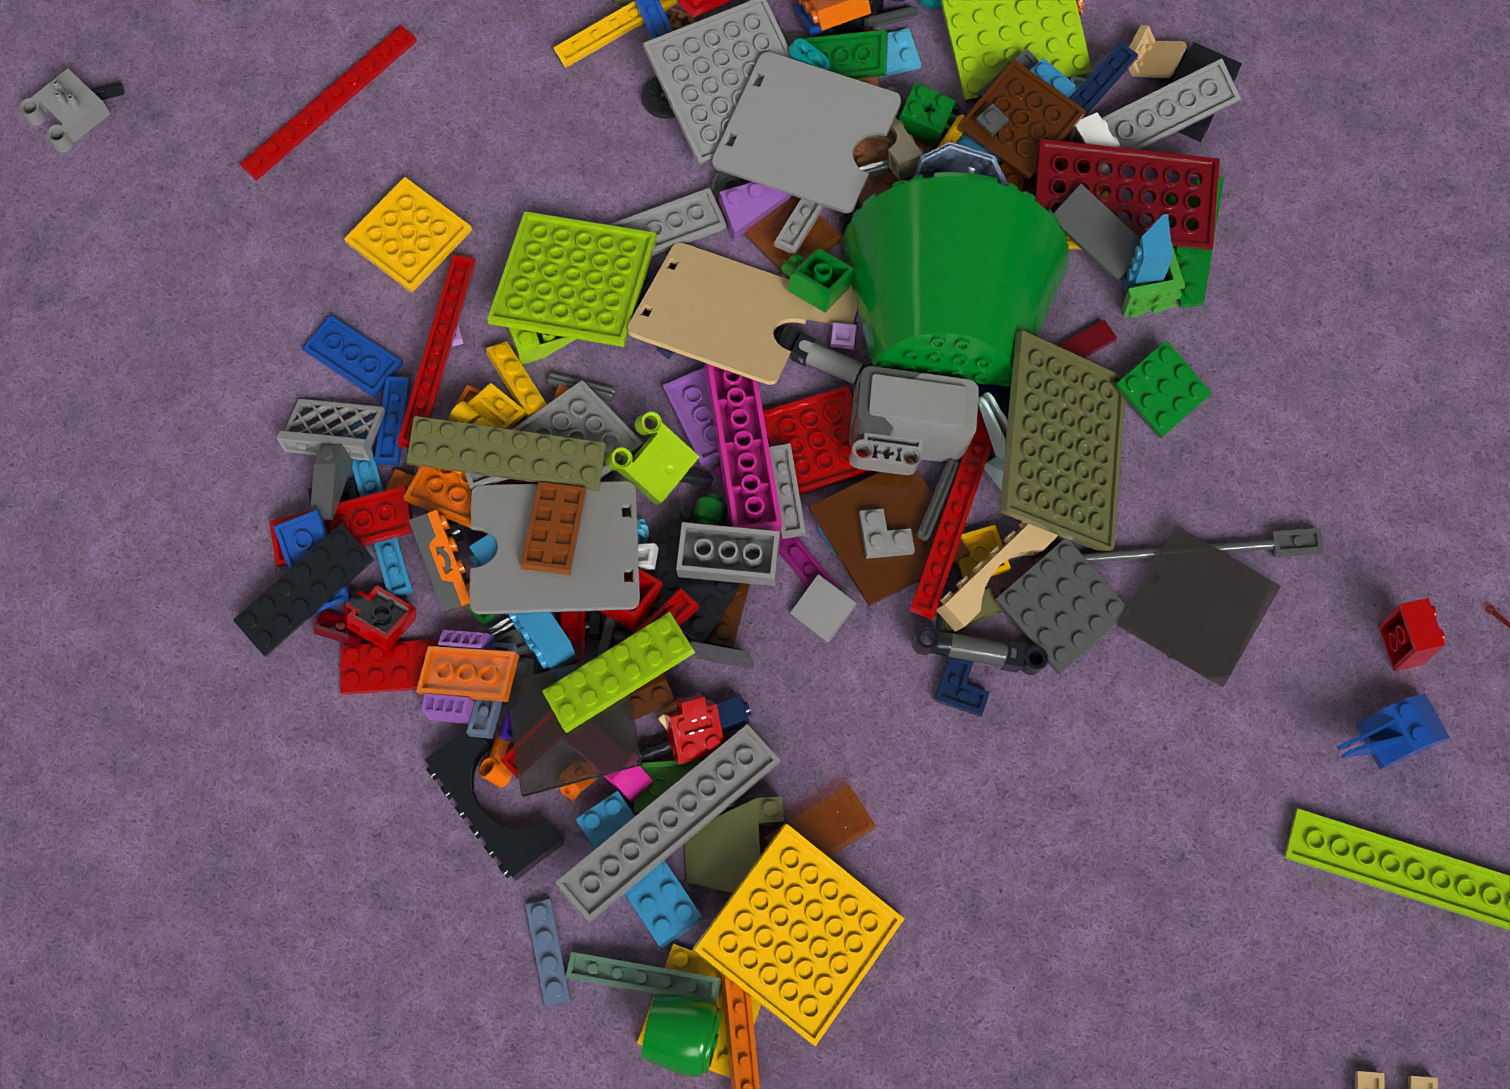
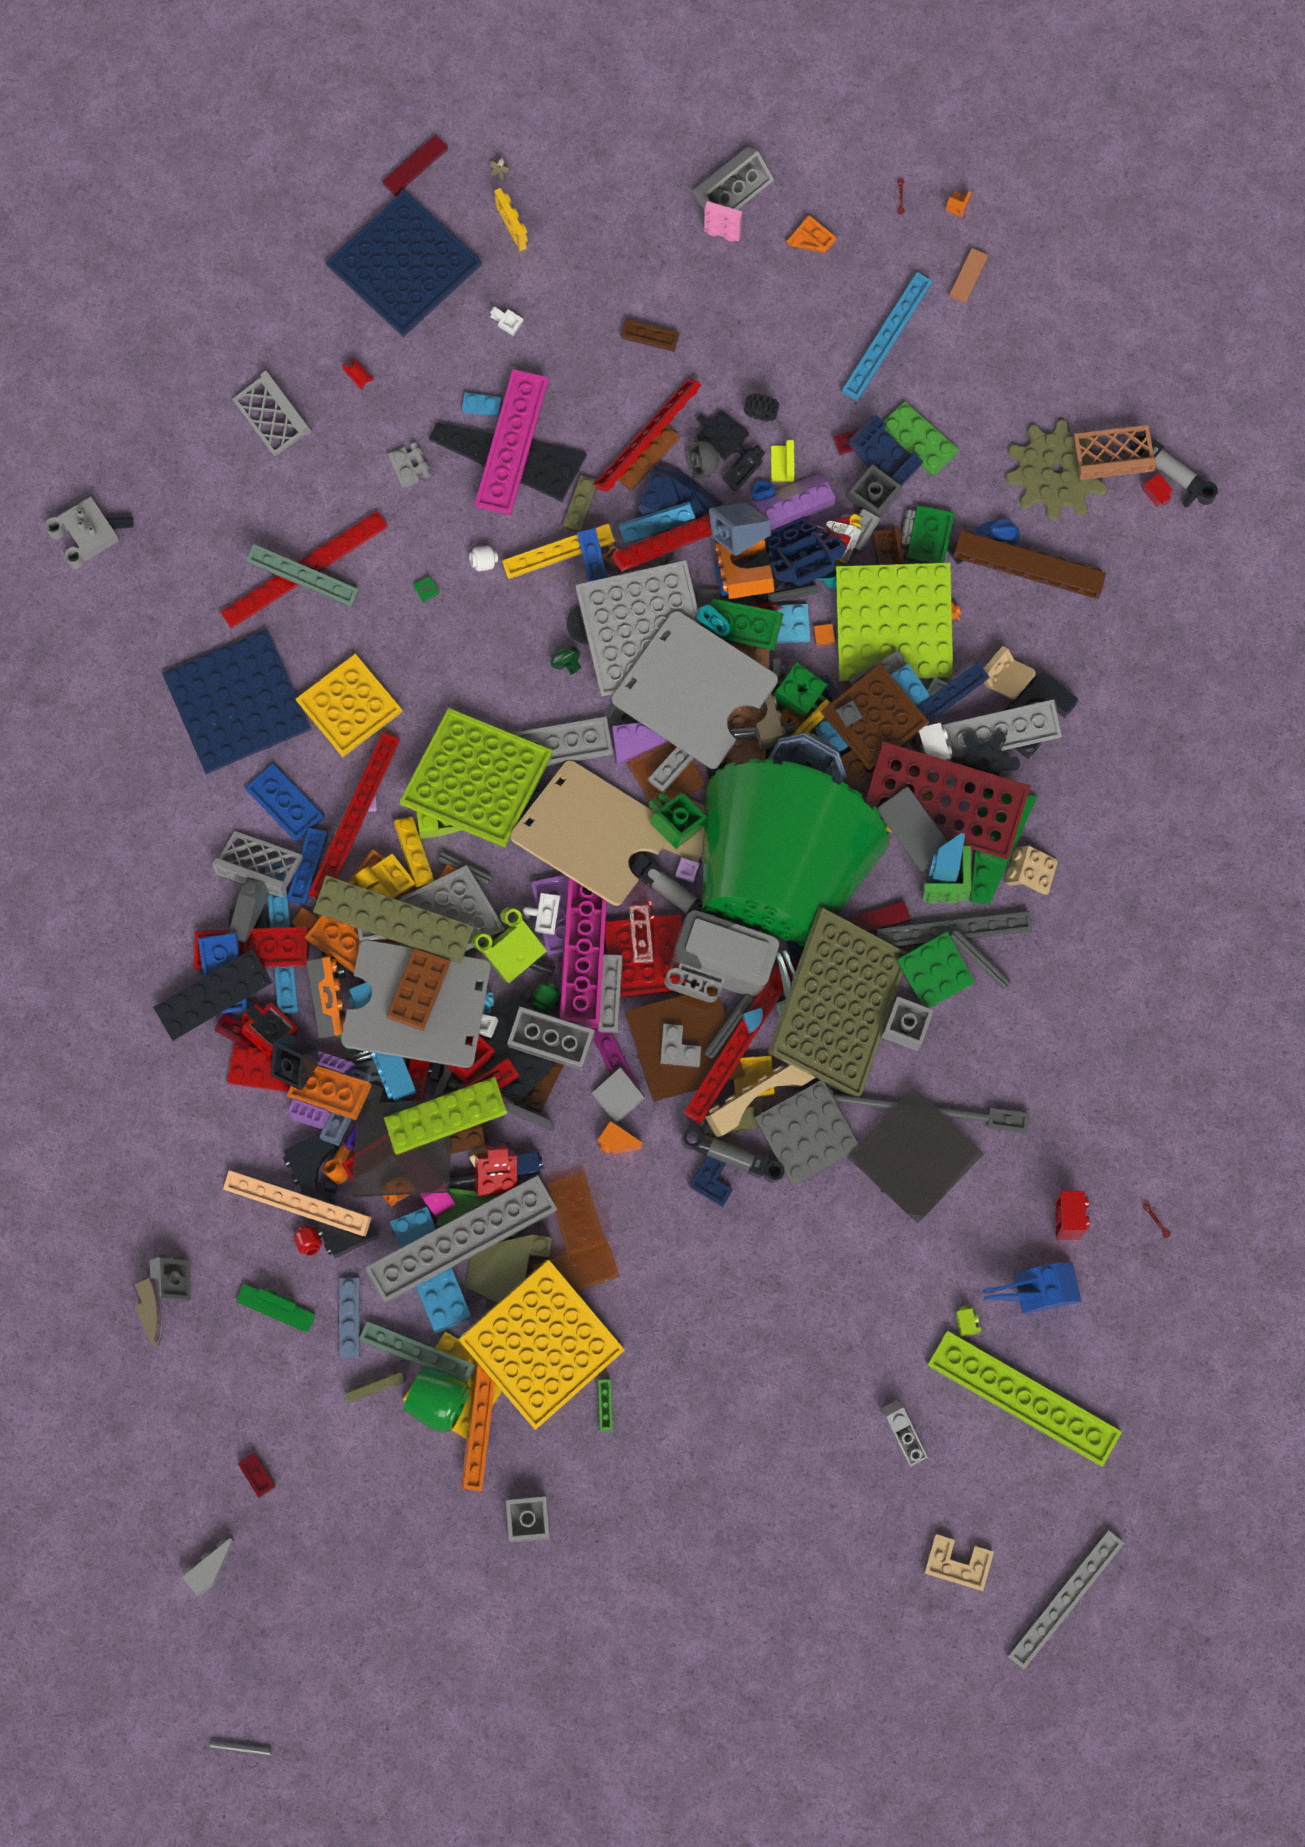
camera: 10 degrees right, 5 degrees up
(275, 257) = (236, 701): none -> dark blue plate
(290, 998) = (150, 1311): none -> dark tan slope
(310, 949) = (171, 1277): none -> dark grey plate
(326, 104) = (302, 575): none -> sand green plate
(417, 647) = (293, 1061): none -> black slope
(452, 958) = (276, 1307): none -> green bracket
(455, 820) = (297, 1203): none -> light nougat plate
(473, 96) = (426, 589): none -> green tile
(476, 865) = (307, 1240): none -> red head
(494, 794) = (331, 1188): none -> dark blue hand
(531, 50) = (483, 558): none -> white head
(597, 1034) = (374, 1386): none -> olive plate
(648, 133) = (567, 657): none -> dark green piece
(688, 415) = (545, 914): none -> white plate
(806, 763) = (576, 1215): none -> clear orange plate
(808, 412) = (642, 930): none -> clear red slope
(835, 662) = (617, 1140): none -> orange slope
(896, 994) = (605, 1405): none -> bright green piece
(935, 56) = (824, 634): none -> orange tile
(965, 484) = (753, 1019): none -> dark azure tile
(1148, 454) = (907, 1023): none -> light grey brick
(1160, 135) = (991, 751): none -> black plate
(1180, 337) = (970, 928): none -> dark grey plate
(1211, 365) = (980, 959): none -> dark grey axle
(1240, 253) = (1031, 869): none -> tan bracket
(1279, 947) = (903, 1432): none -> light grey slope
(1318, 792) = (967, 1321): none -> lime brick

